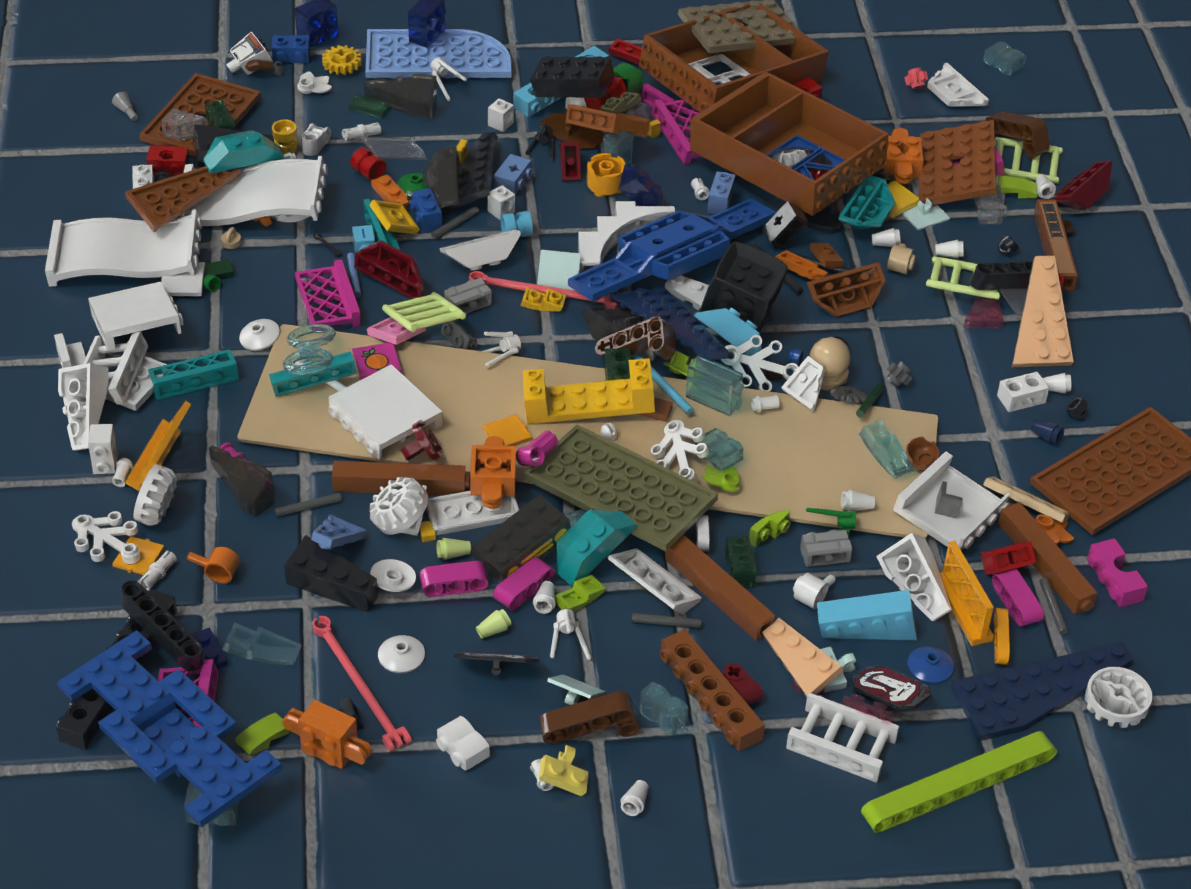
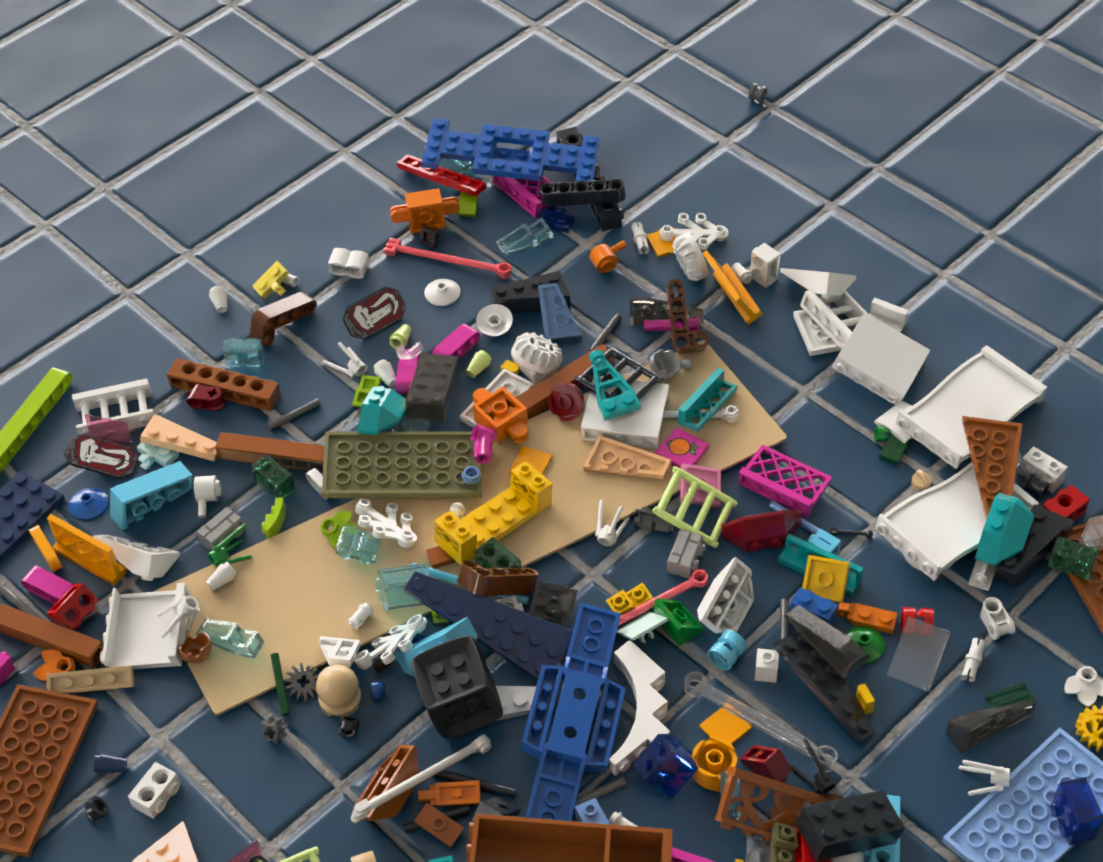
camera: 145 degrees right, 5 degrees up
(195, 377) = (787, 352): teal fence -> none
(253, 434) = (681, 316): none -> reddish brown beam
(259, 334) = (793, 421): white dish -> none
(263, 798) = (442, 176): none -> red plate
(285, 136) = (1015, 594): yellow wheel -> none
(304, 422) = (667, 364): none -> light grey hair
(309, 349) = (726, 408): clear light blue bar -> none
(390, 412) = (624, 361): none -> black bar
(393, 392) = (616, 405): none -> teal plate
(432, 380) = (623, 459): none -> light nougat wing
(500, 115) = (885, 769): white brick -> none
(512, 580) = (409, 353): none -> clear arm
(513, 173) = (794, 706): medium blue brick -> none
(525, 263) = (681, 624): none -> green slope
(545, 185) = (757, 719): none -> clear piece
(568, 200) = (725, 726): none -> light orange piece
(574, 433) = (471, 475): none -> medium blue plate
(575, 688) = (309, 328): light aqua piece -> none
(656, 580) = (311, 424): white slope -> none
(883, 258) = (361, 809): none -> white hinge
(913, 465) = (187, 607): none -> white plant
(947, 504) = (147, 619): flat silver panel -> none
(1058, 383) = (129, 825): white cone -> none

